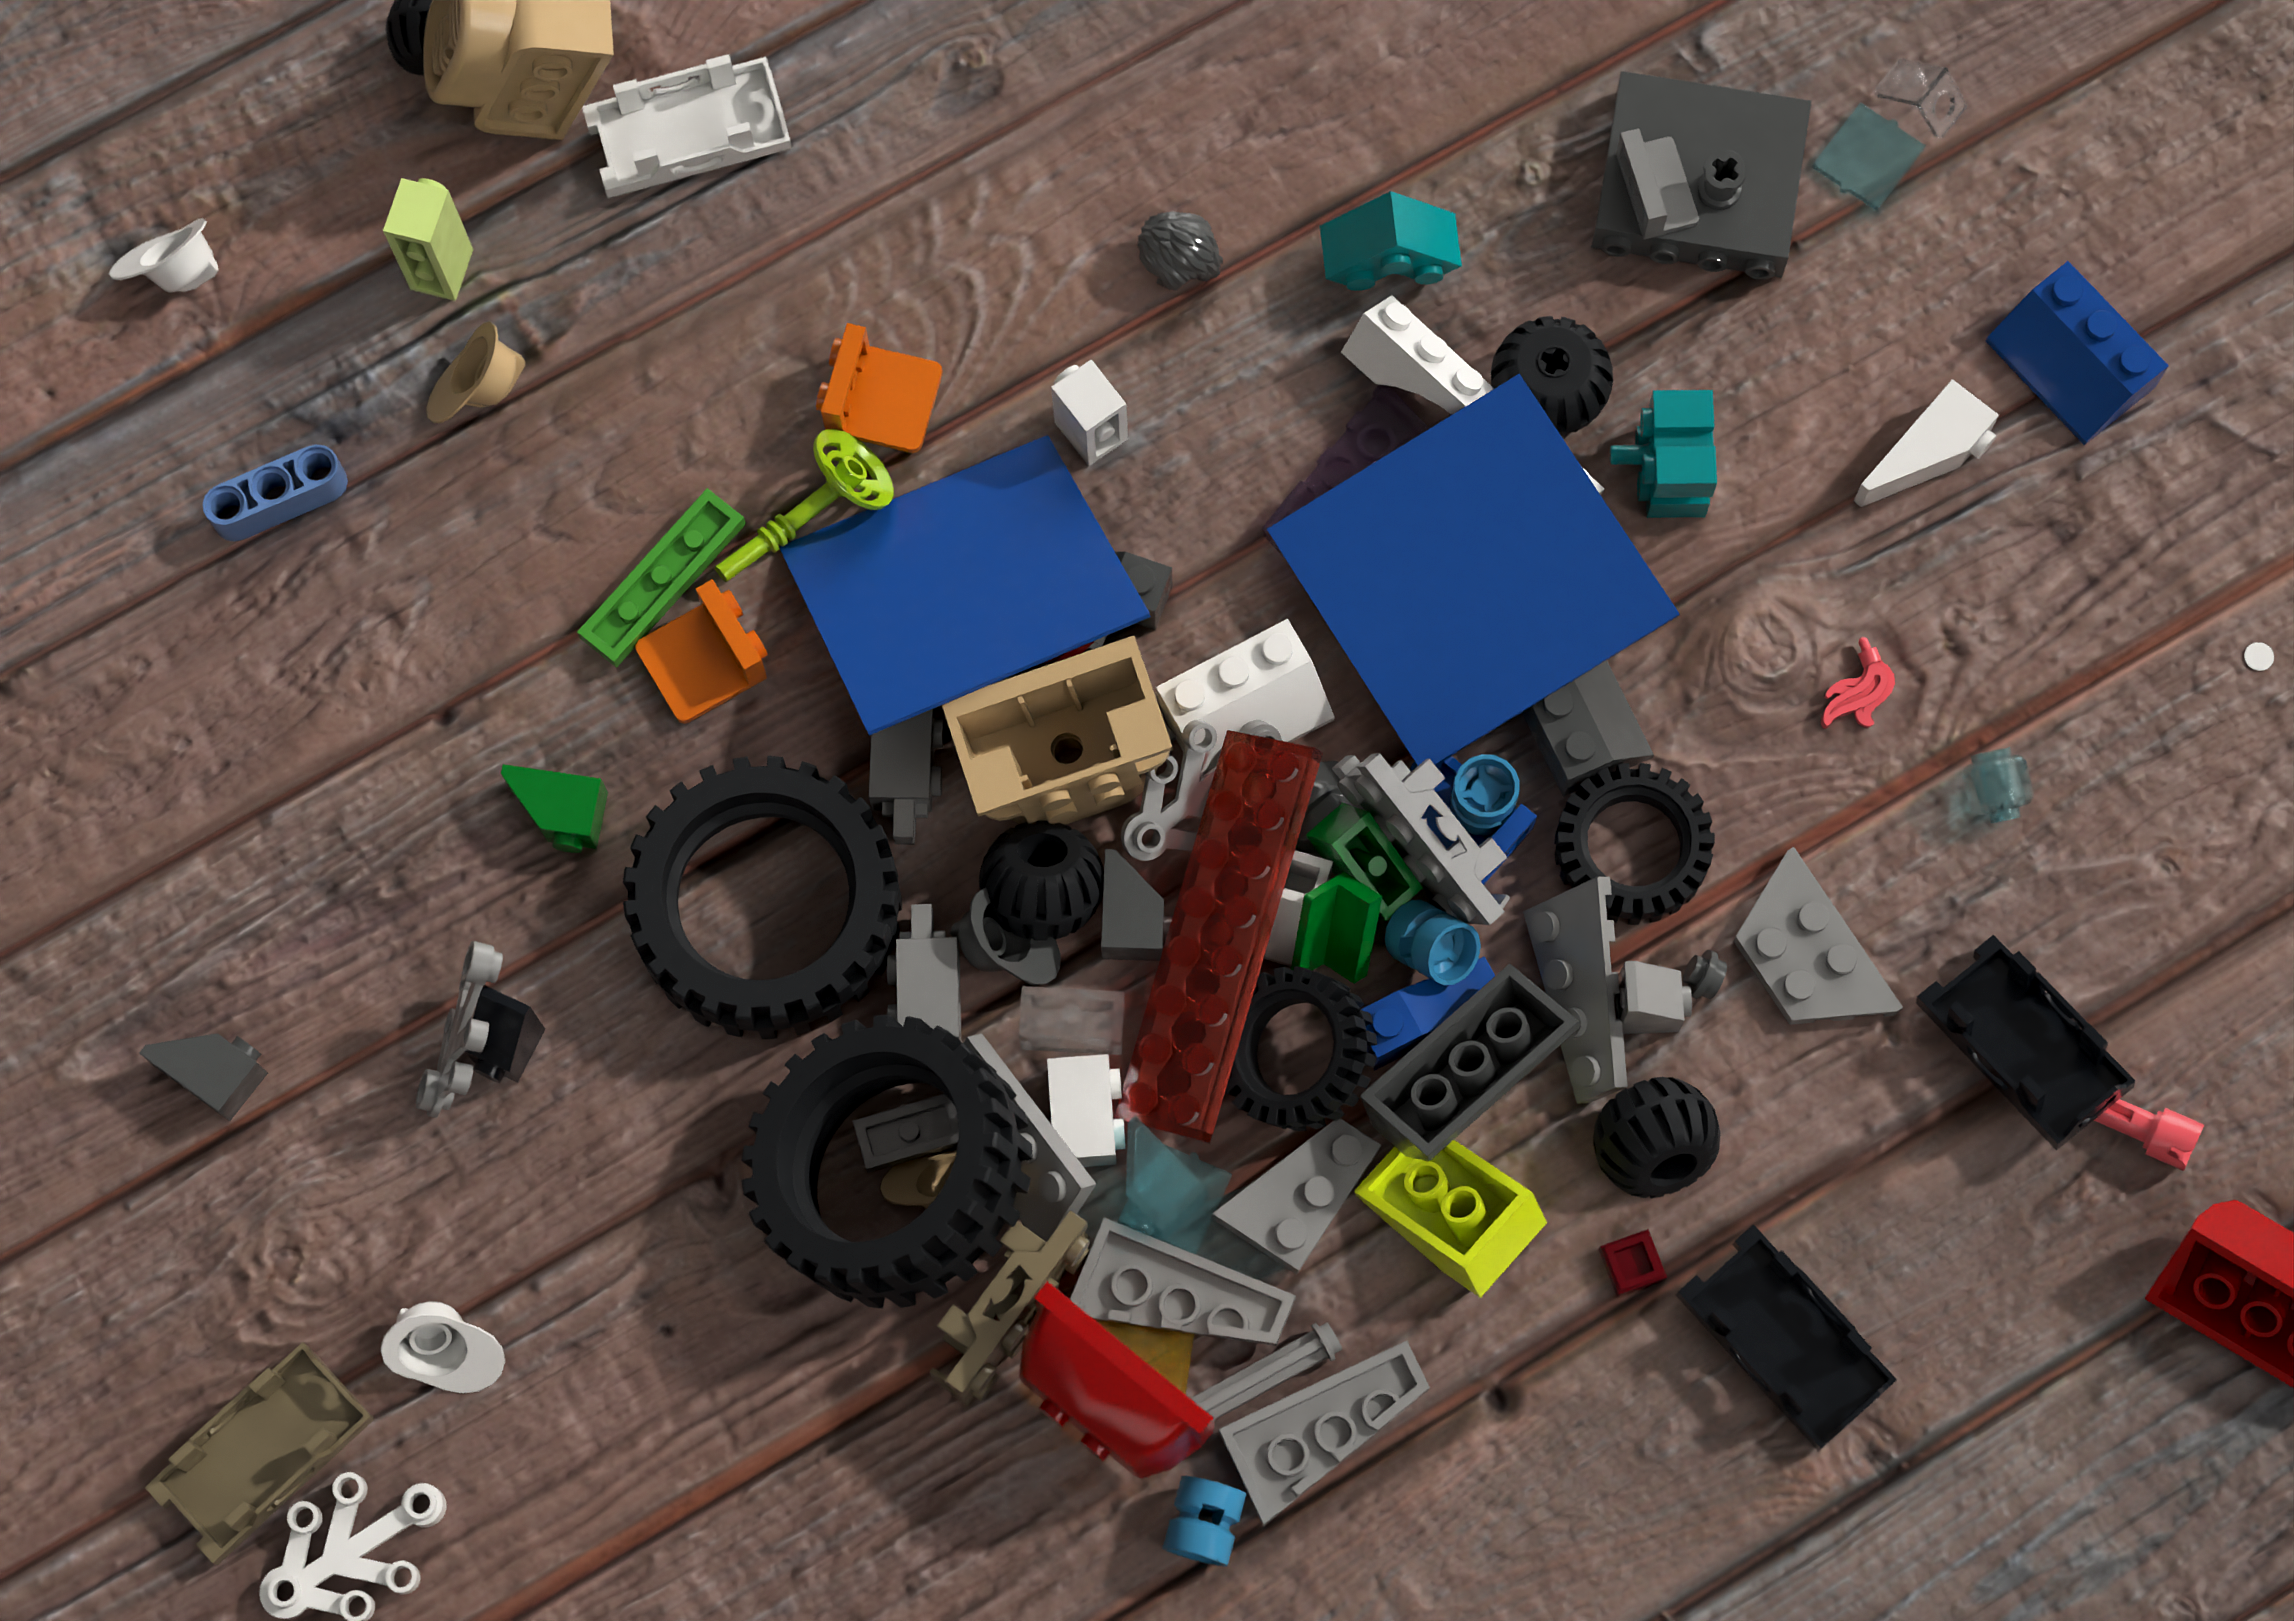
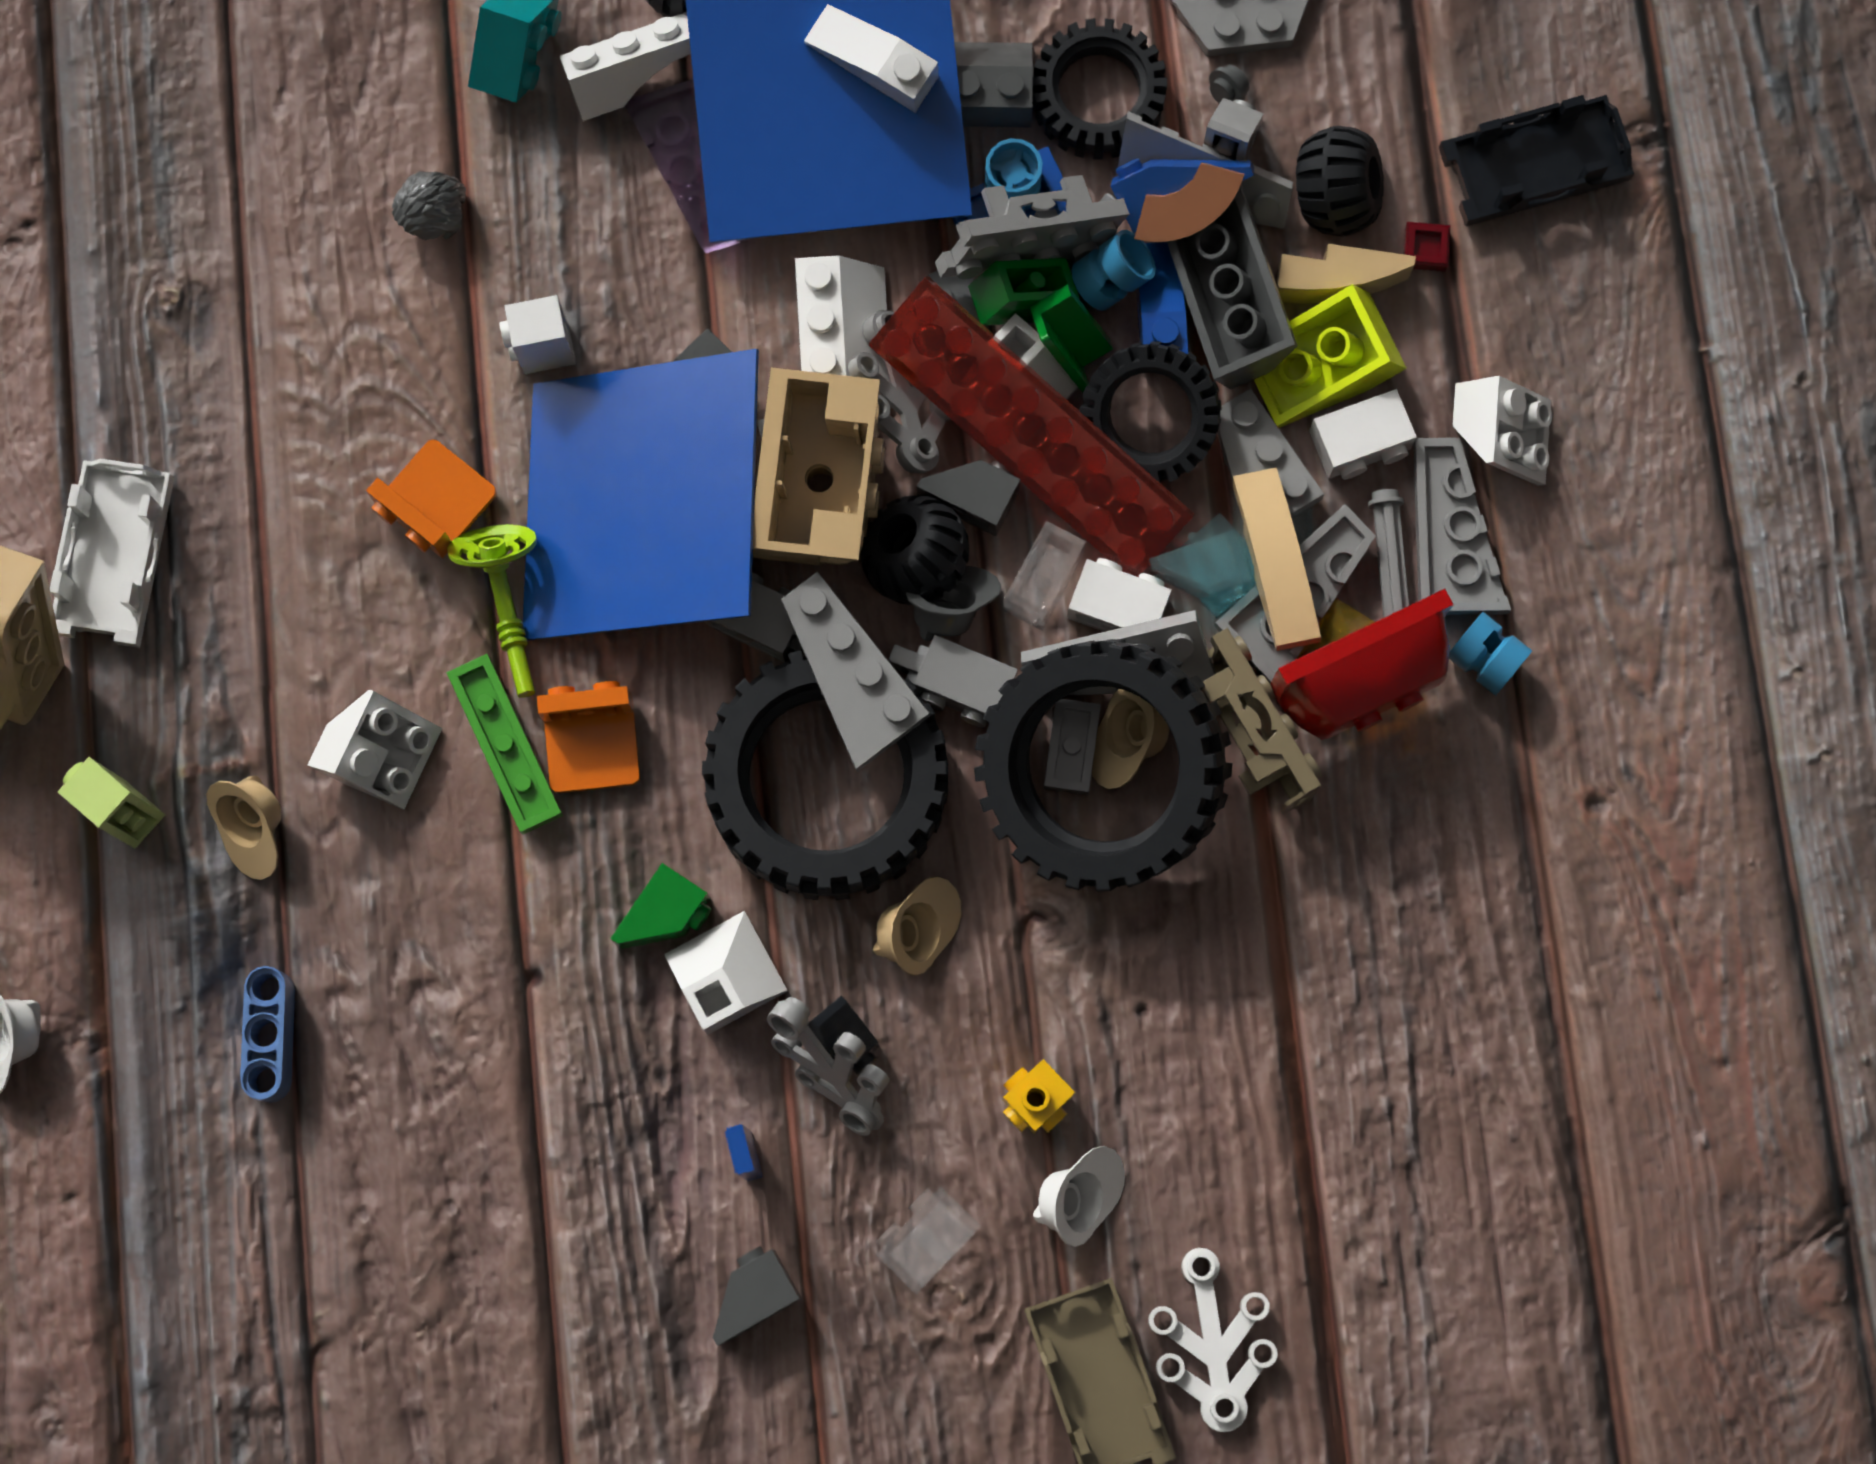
camera: 65 degrees left, 5 degrees up
(334, 1214) = (927, 1239): none -> clear brick
(335, 987) = (743, 1152): none -> blue tile
(519, 893) = (725, 973): none -> white slope
(537, 1267) = (1039, 1080): none -> yellow brick
(600, 460) = (376, 748): none -> white slope
(651, 1063) = (919, 926): none -> tan piece
(861, 872) = (857, 681): none -> light grey wing
(1193, 1246) = (1276, 559): none -> tan slope
(1383, 1284) = (1363, 435): none -> white brick
(1462, 1432) = (1505, 425): none -> white slope
(1526, 983) = (1188, 209): none -> nougat tile
(1531, 593) = (874, 56): none -> white slope
(1551, 958) = (1161, 178): none -> blue slope
(1551, 1179) = (1315, 280): none -> tan slope

